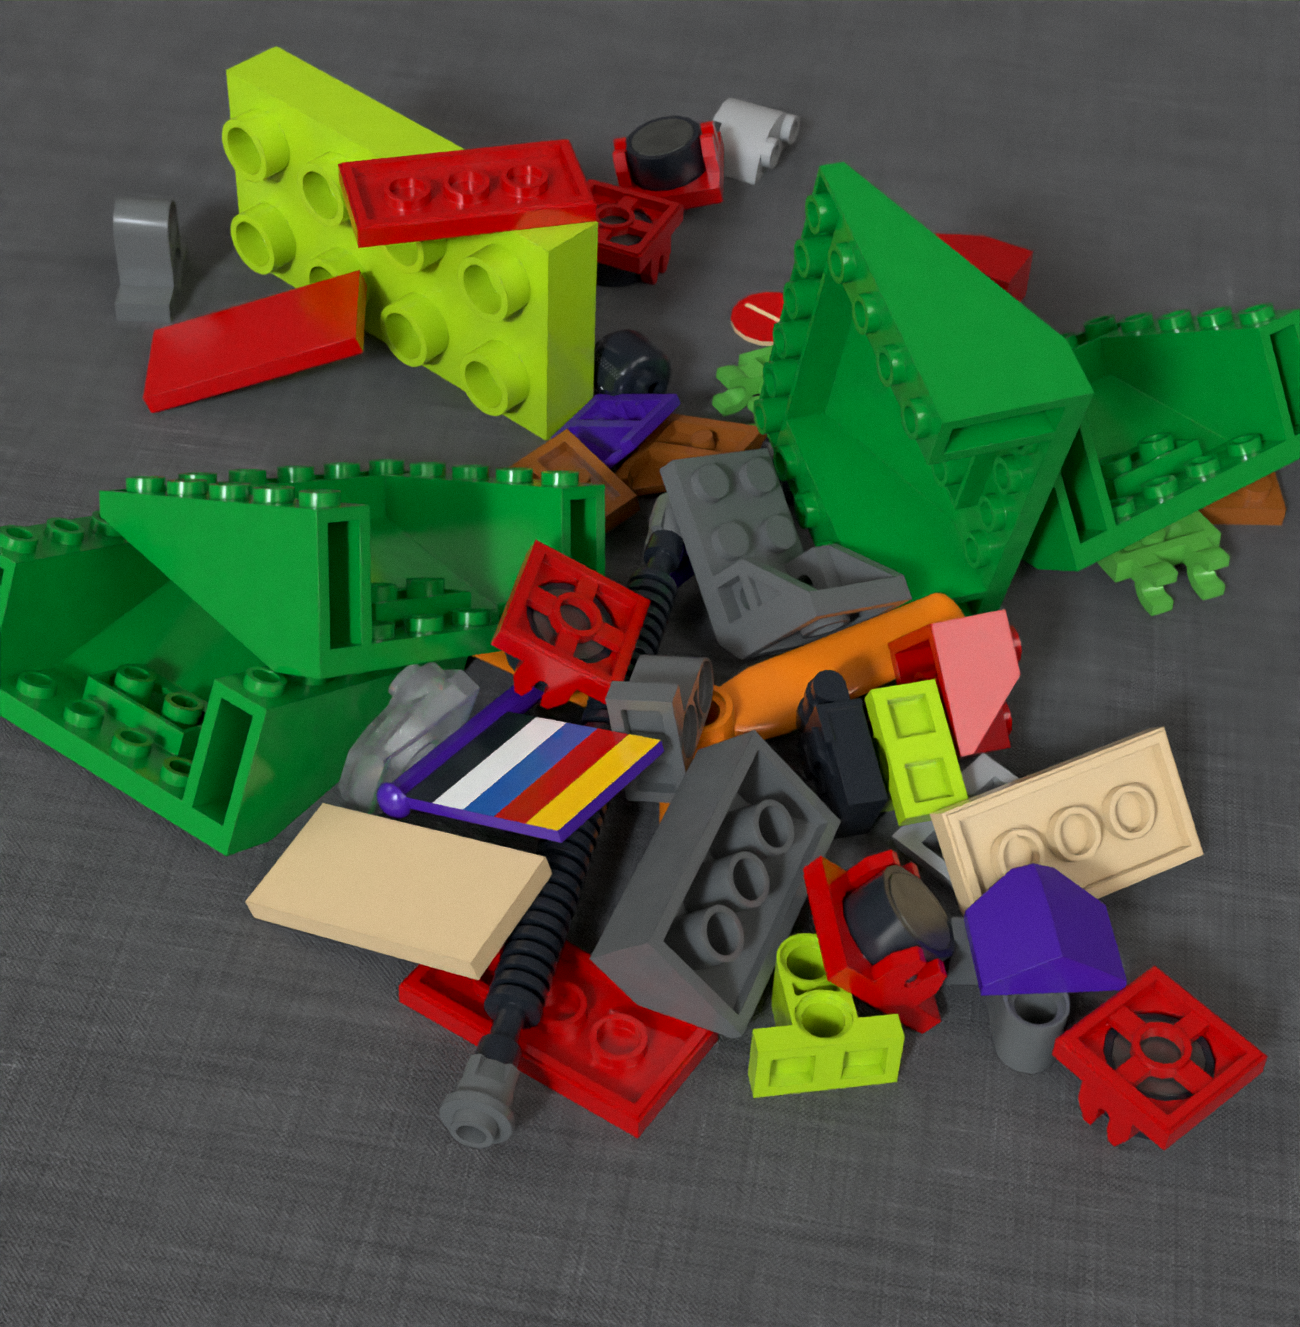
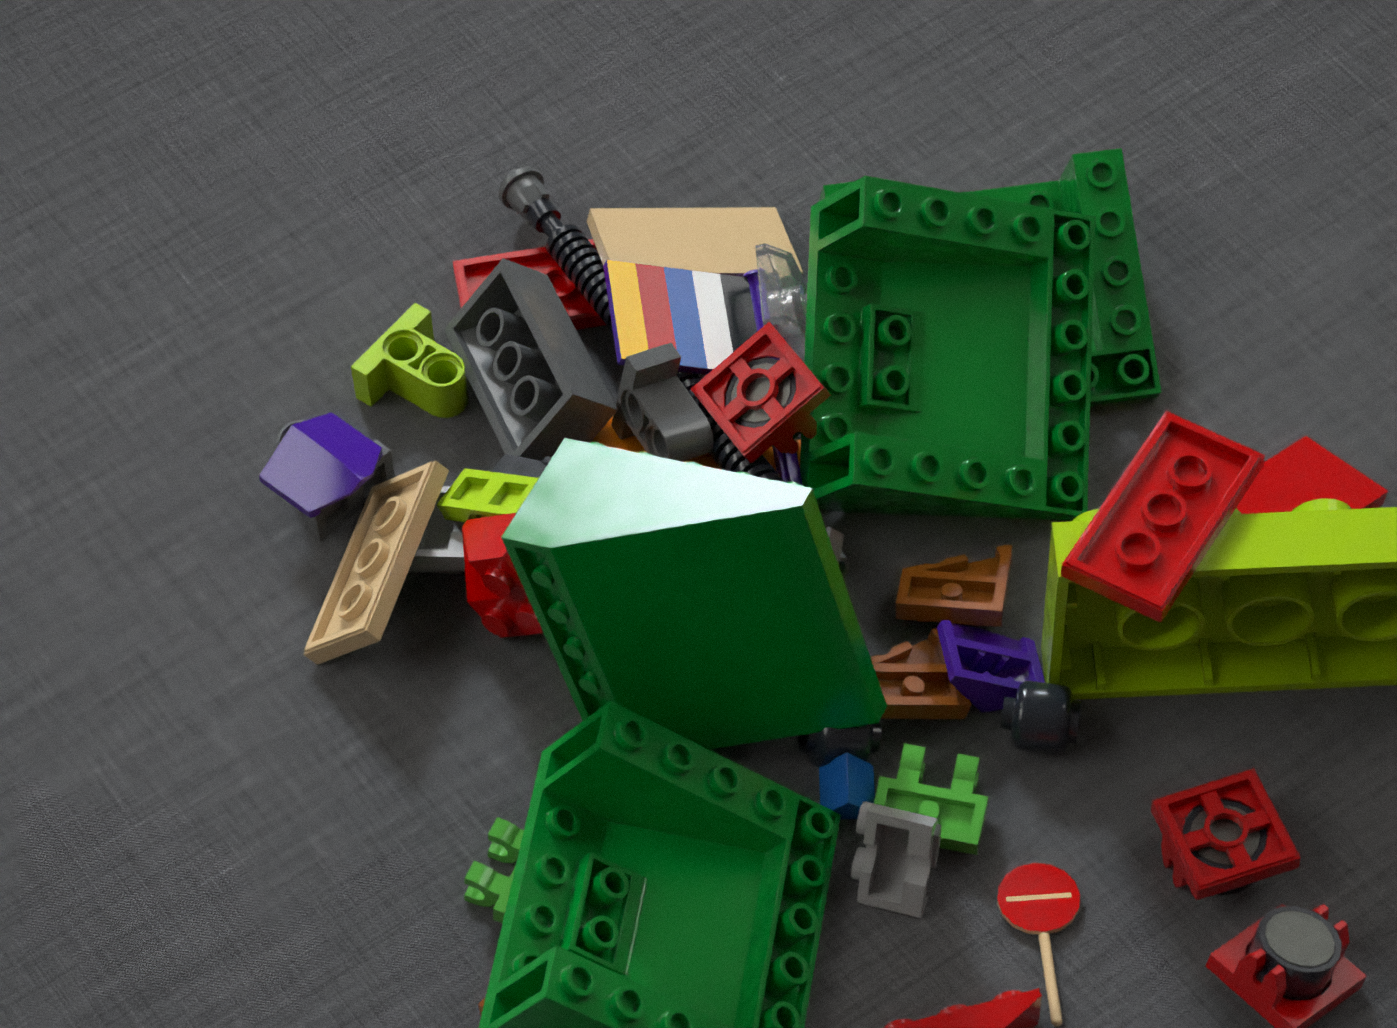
camera: 140 degrees right, 10 degrees up
(881, 935) = (418, 410): piece -> none
(1155, 1061) = (210, 470): red piece -> none

